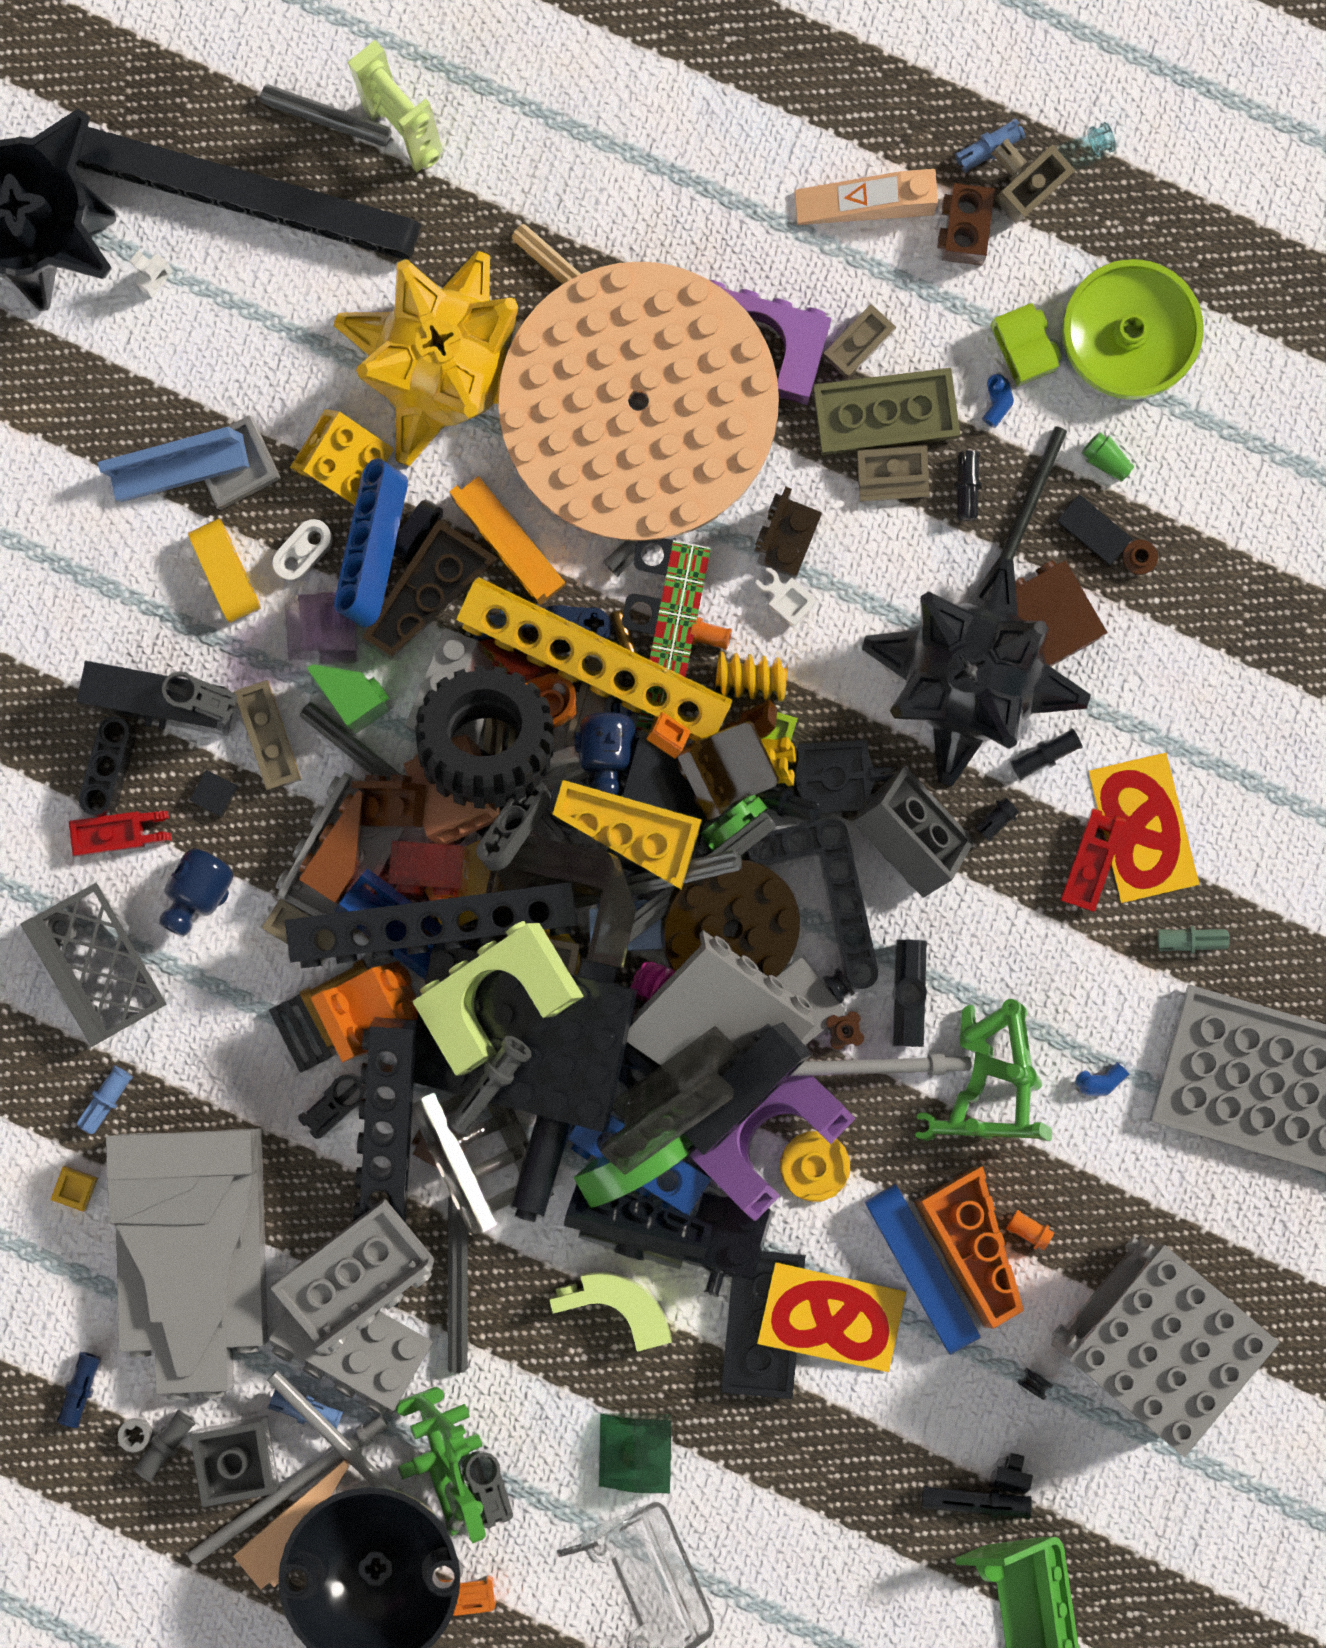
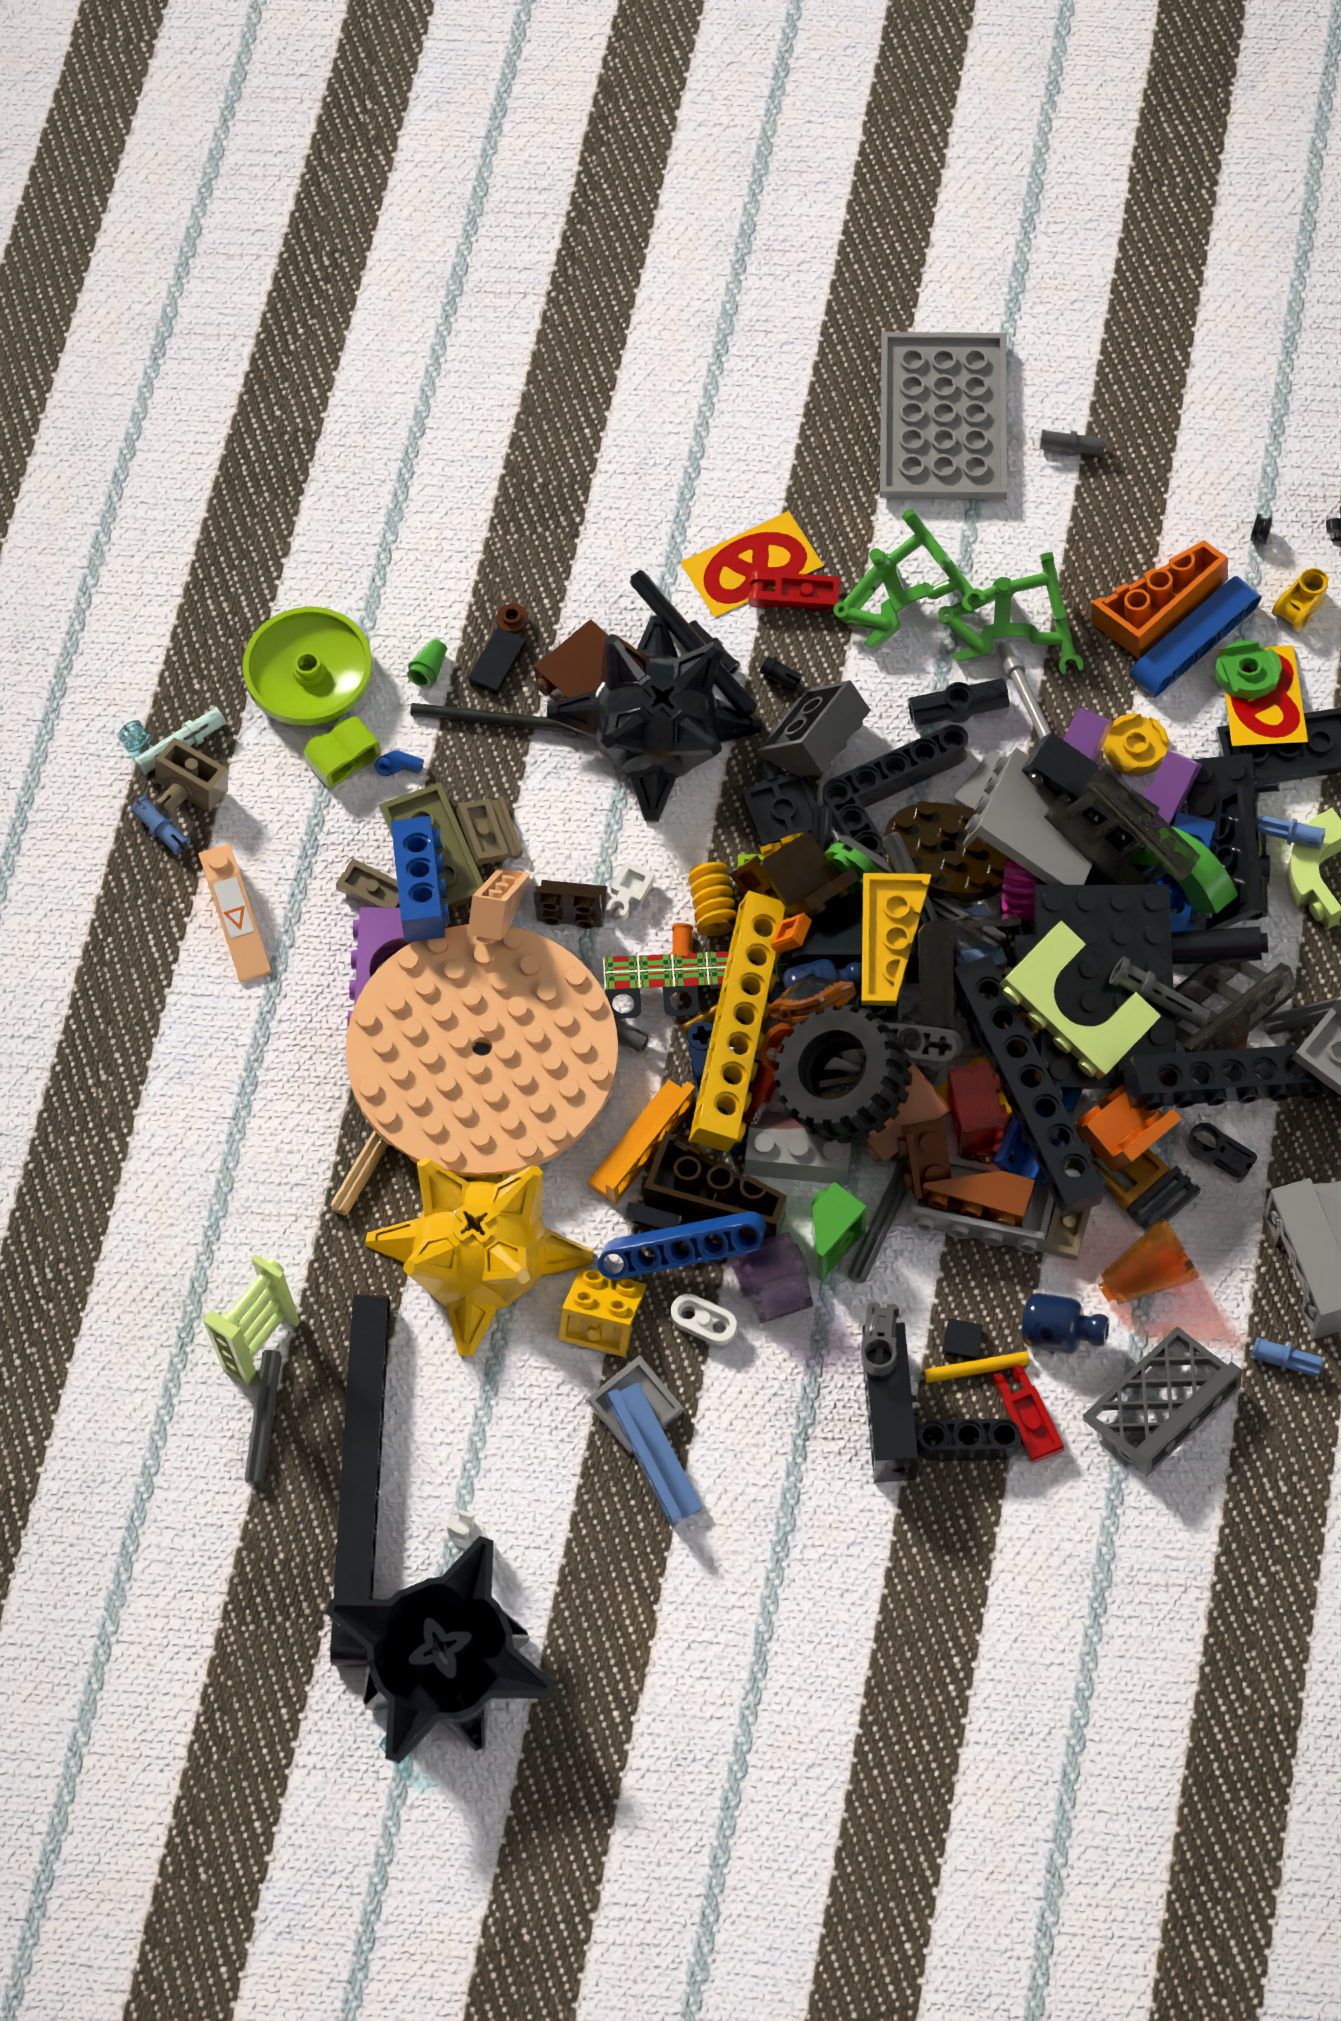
camera: 105 degrees left, 20 degrees down
(183, 799) = (976, 1367): none -> yellow bar
(224, 570) = (743, 1385): yellow beam -> none
(227, 994) = (1148, 1266): none -> clear orange cone
(267, 735) = (907, 1292): dark tan plate -> none
(581, 732) = (810, 995): none -> dark orange hat
(651, 1288) = (1292, 831): none -> medium blue axle
(791, 451) = (496, 904): none -> light nougat slope
(836, 1025) = (1009, 739): reddish brown plate -> none
(838, 985) = (969, 760): black bush -> none
(879, 1325) = (1246, 685): none -> bright green plate
(890, 377) = (418, 879): none -> blue brick
(933, 1395) = (1300, 603): none -> yellow piece
(968, 485) = (485, 767): black axle -> none
(973, 225) = (240, 815): reddish brown brick -> none
(1030, 1230) = (1134, 556): orange pin -> none
(1052, 732) = (691, 640): none -> black axle
(1081, 958) = (887, 572): none -> bright green piece
(1088, 197) = (213, 721): none -> light aqua pin
(1101, 1084) = (986, 538): blue arm -> none
(1165, 1343) = (1193, 426): light grey piece -> none
(1192, 939) = (840, 501): sand green axle -> none
(1198, 1212) = (1072, 443): none -> dark grey pin

